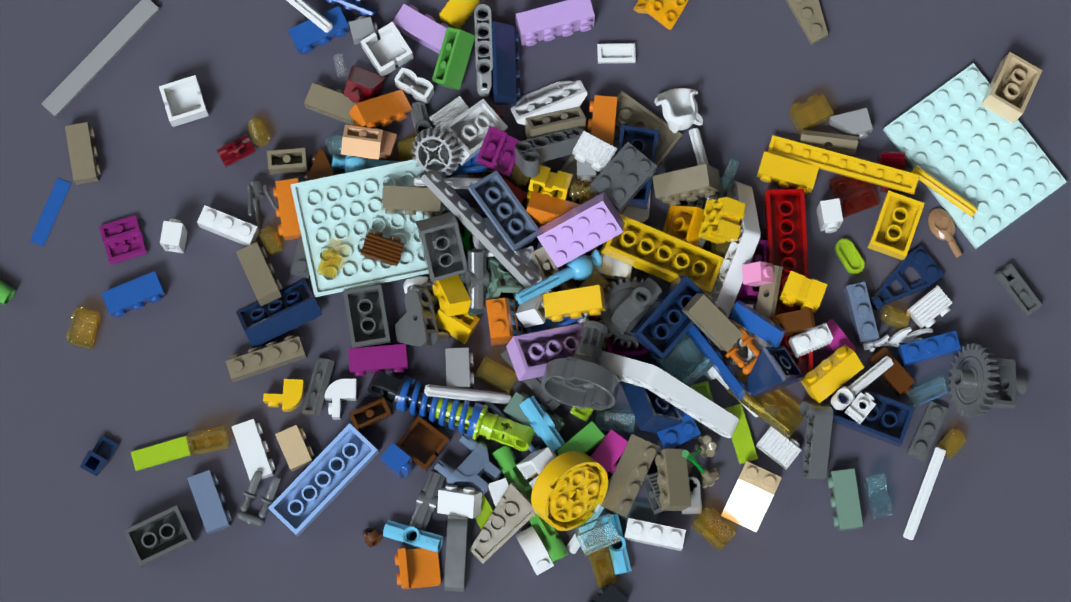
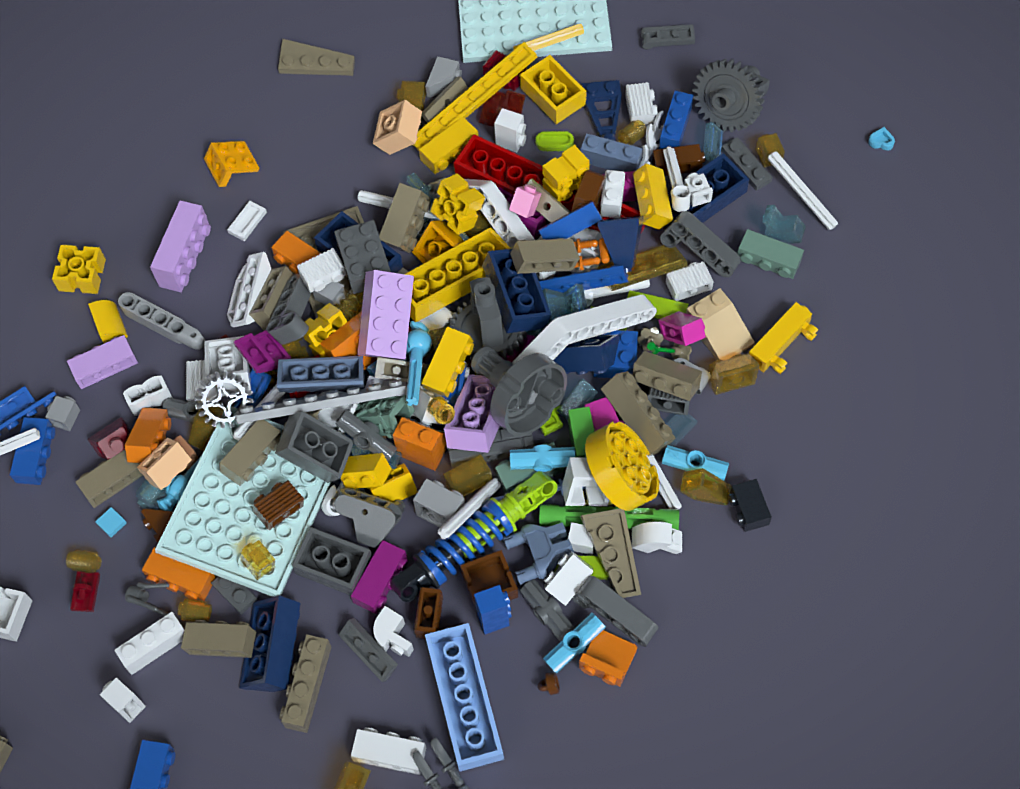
camera: 55 degrees left, 15 degrees down
(123, 240) = (88, 758): magenta slope -> none
(287, 161) = (131, 548): dark tan brick -> none
(290, 399) = (360, 683): yellow brick -> none
(294, 447) = (412, 707): tan brick -> none
(301, 129) = (110, 522): none -> medium azure tile
(340, 65) = (79, 452): clear piece -> none
(387, 51) = (99, 400): white piece -> none
(453, 58) = (148, 347): bright green brick -> none
(504, 63) = (200, 315): dark blue slope -> none
(527, 324) = (441, 410): none -> clear yellow brick
(597, 534) = (678, 469): clear light blue brick -> none
(654, 534) = (706, 424): white brick -> none
(679, 108) = (333, 194): white hair -> none
(725, 468) = (682, 328): none -> dark pink brick
(772, 550) = (781, 335): none -> yellow brick
(773, 120) = (397, 127): none -> light nougat brick
(943, 228) = (578, 62): medium nougat piece -> none
(1024, 532) = (881, 139): none -> medium azure tile

